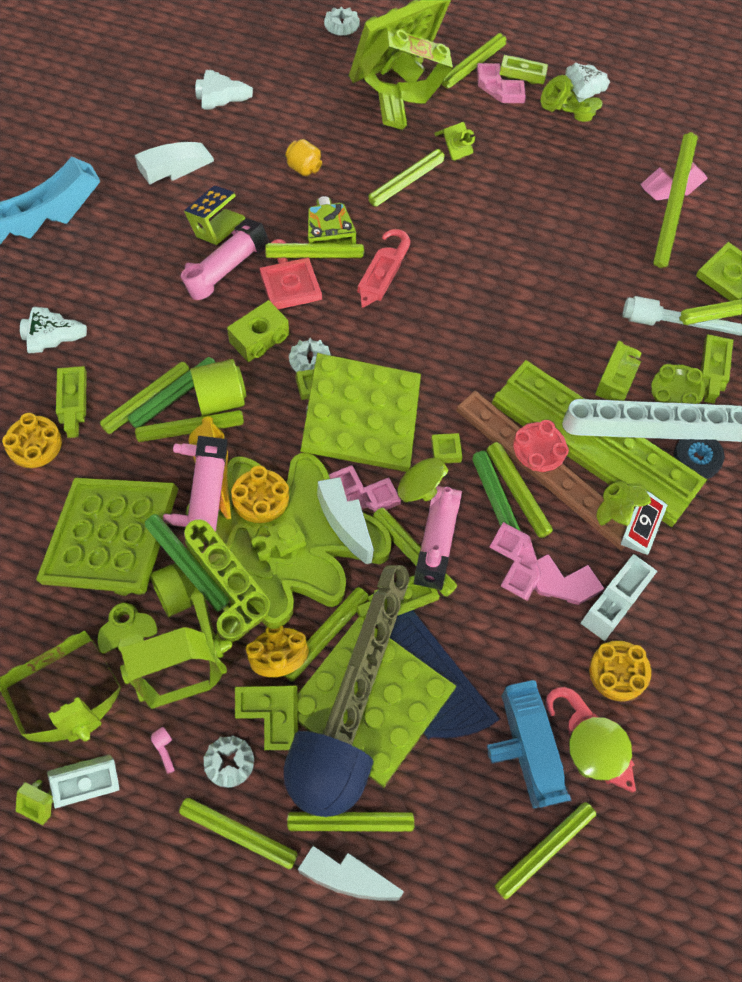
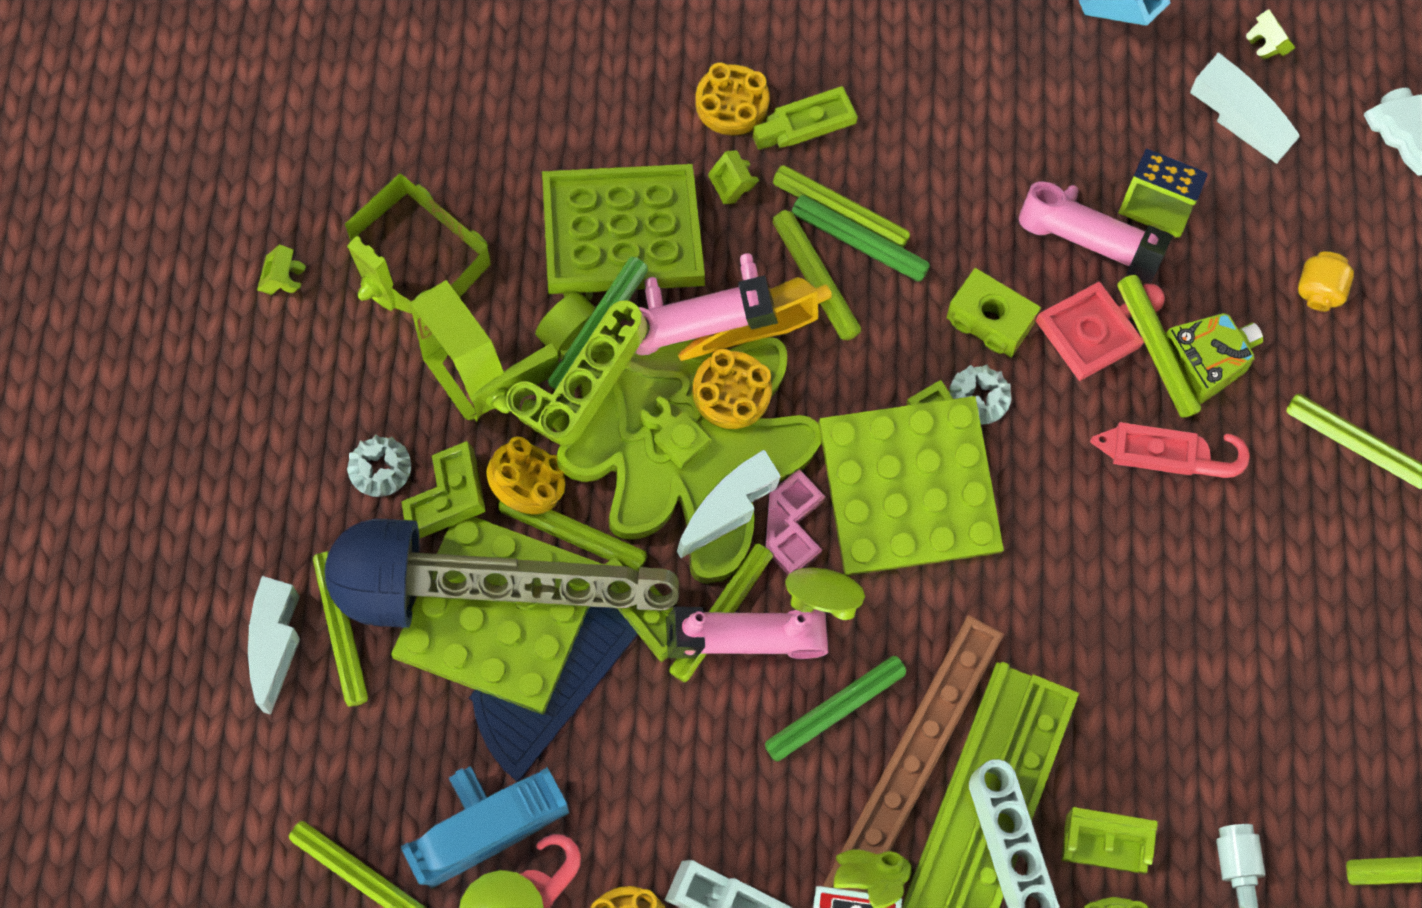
camera: 75 degrees right, 5 degrees up
(49, 330) = (900, 54): light aqua rock -> none
(83, 780) = (315, 312): light aqua slope -> none
(95, 456) = (731, 177): none -> lime tile
(121, 635) = (504, 298): lime plate -> none
(129, 130) = (1275, 36): none -> tile
(160, 739) = (382, 379): bright pink hand -> none
(218, 387) = (877, 286): lime piece -> none
(238, 833) = (296, 503): lime axle -> none
(447, 447) = (892, 616): lime plate -> none
(519, 490) = (861, 733): lime axle -> none
(525, 569) = (732, 764): bright pink tile -> none
(540, 446) = (934, 743): coral dish -> none
(574, 588) = (730, 841): bright pink tile -> none

